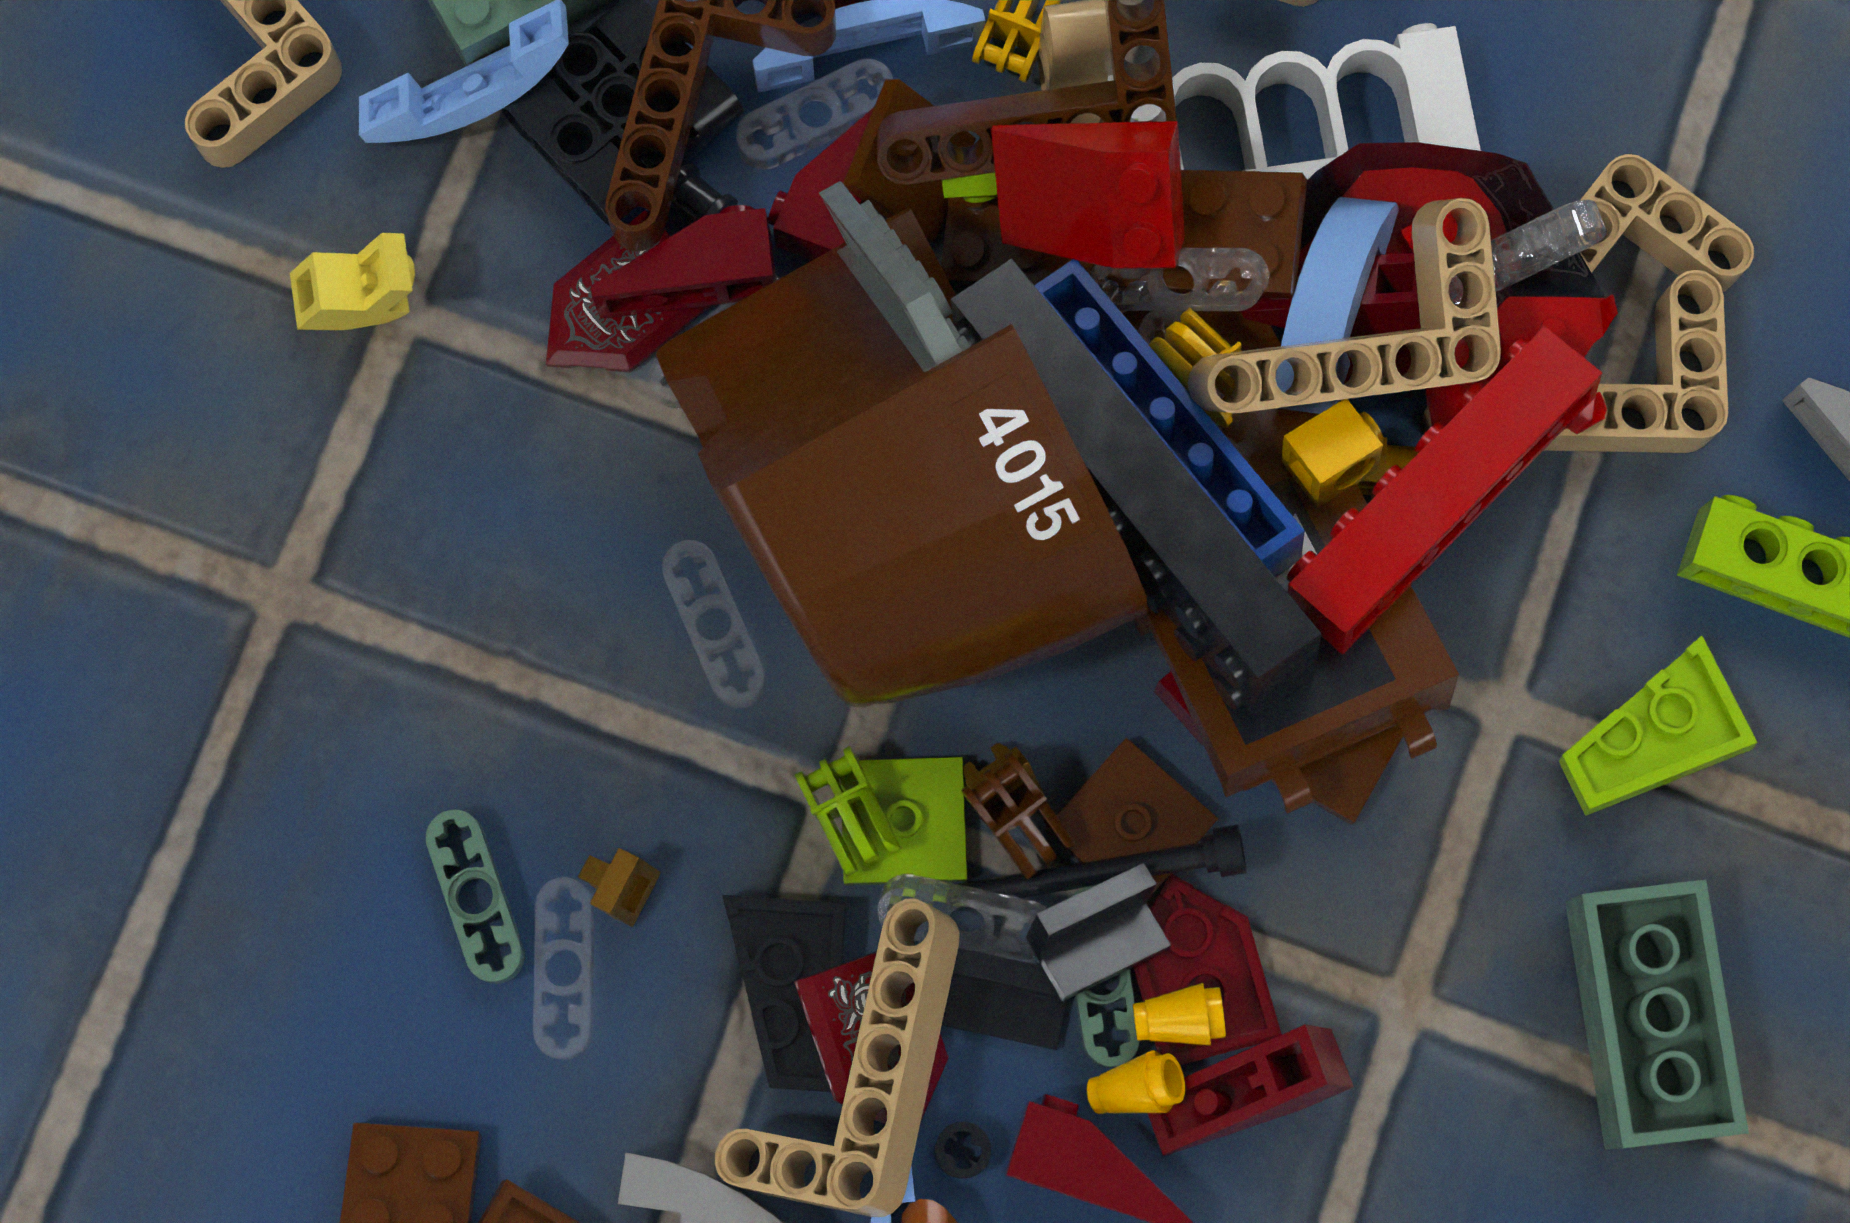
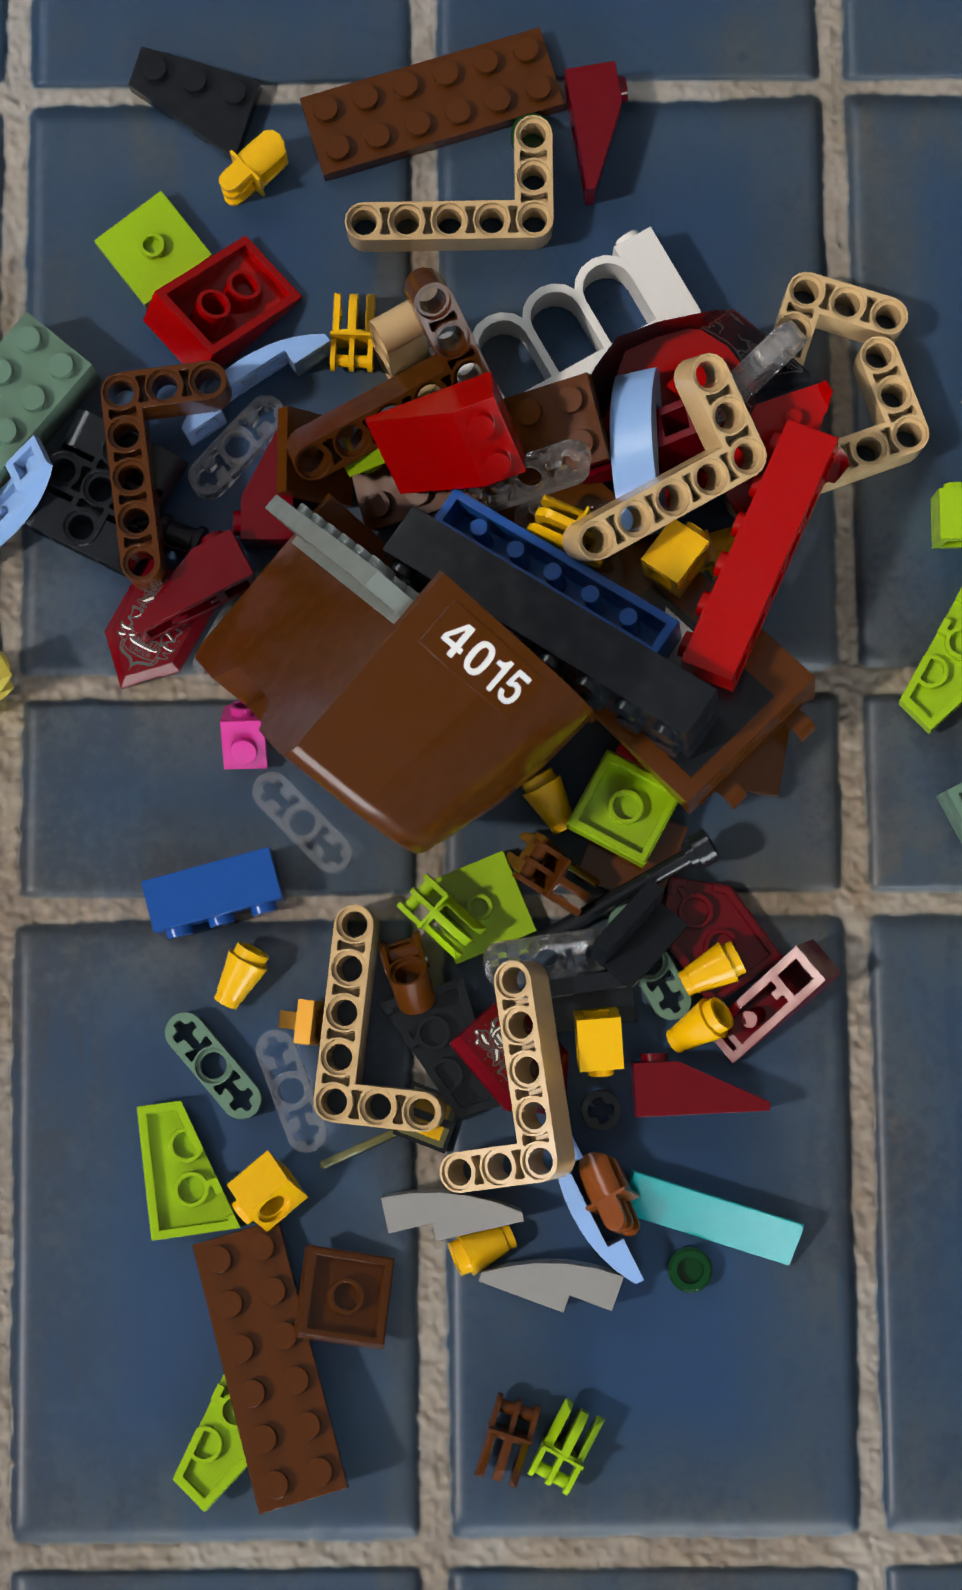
camera: 15 degrees left, 5 degrees up
(371, 1024) = (178, 1177): none -> lime wing
(477, 1088) = (266, 1192): none -> yellow brick
(556, 789) = (240, 974): none -> yellow cone
(562, 670) = (214, 893): none -> blue brick
(675, 928) = (355, 1038): none -> tan beam
(677, 486) = (241, 740): none -> dark pink bracket
(722, 1073) = (424, 1112): none -> piece
(776, 870) = (408, 973): none -> reddish brown piece
(994, 1056) = (598, 1041): none -> yellow brick
(1048, 714) = (549, 799): none -> yellow cone
(1141, 761) = (623, 809): none -> lime plate

